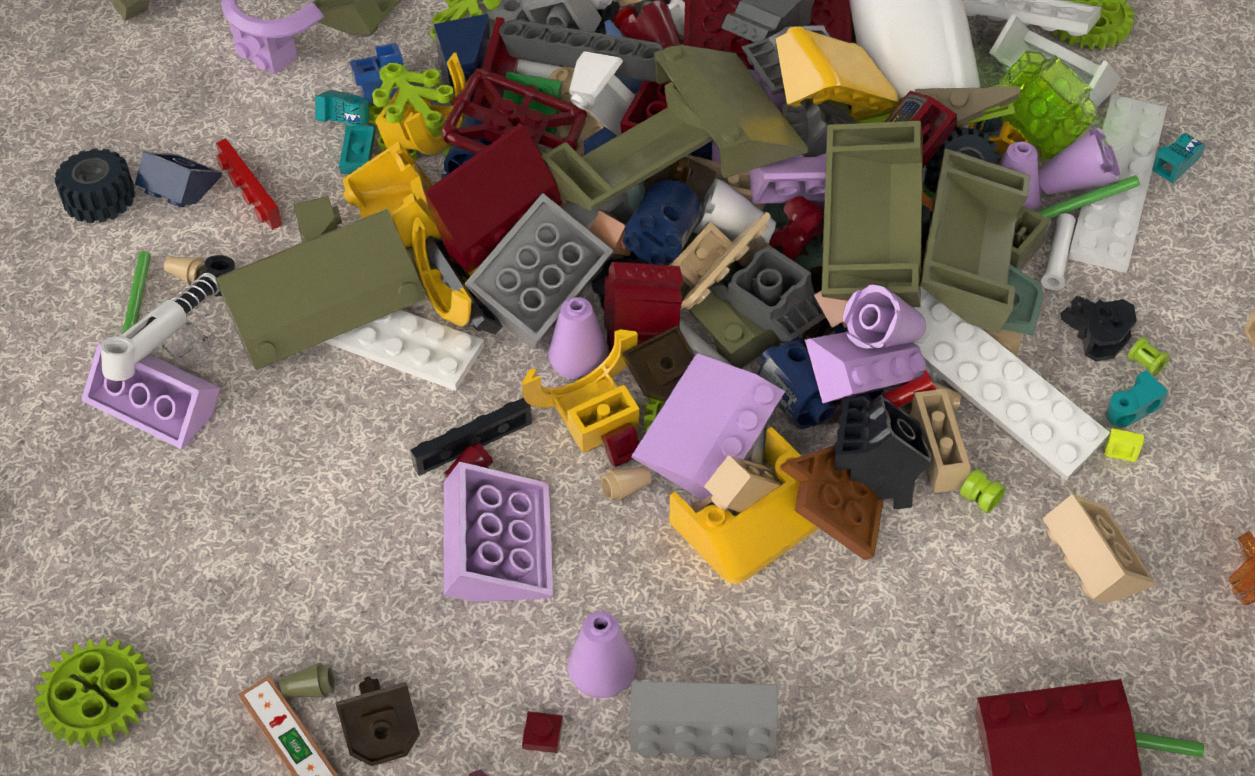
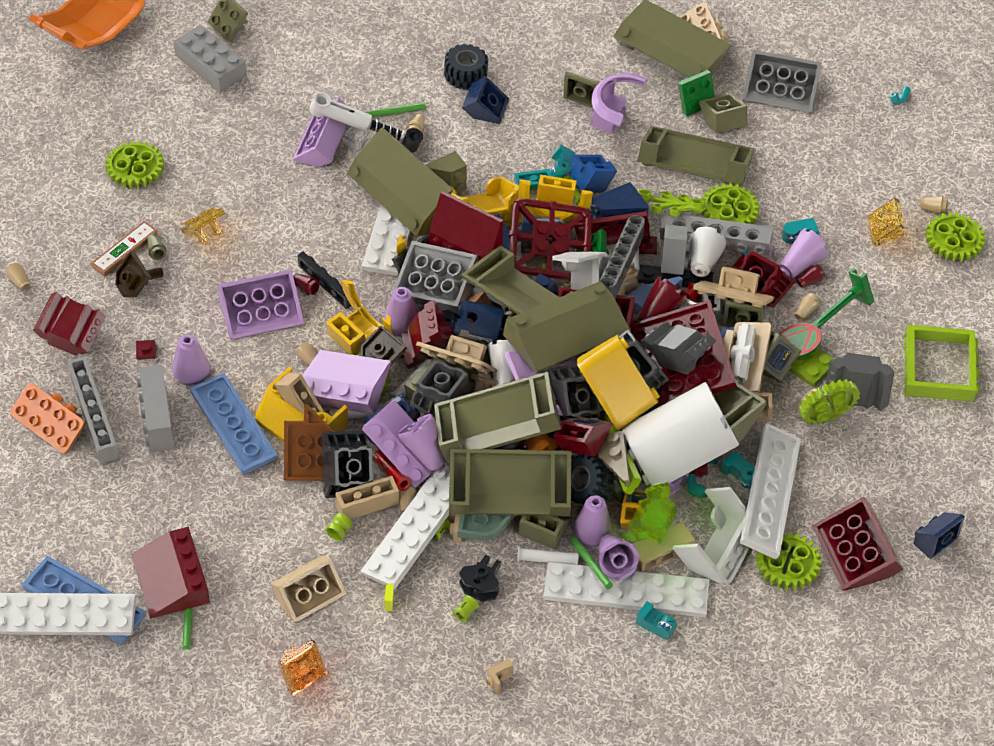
camera: 75 degrees right, 0 degrees up
(210, 62) = (579, 88): none -> olive slope
(251, 188) = (488, 135): red plate -> none
(288, 591) = (208, 216): none -> clear yellow plate
(397, 76) = (577, 173): lime plant -> none
(620, 444) = (334, 345): dark red plate -> none
(743, 612) = (233, 424): none -> medium blue plate
(1137, 402) = (427, 604): teal leg -> none

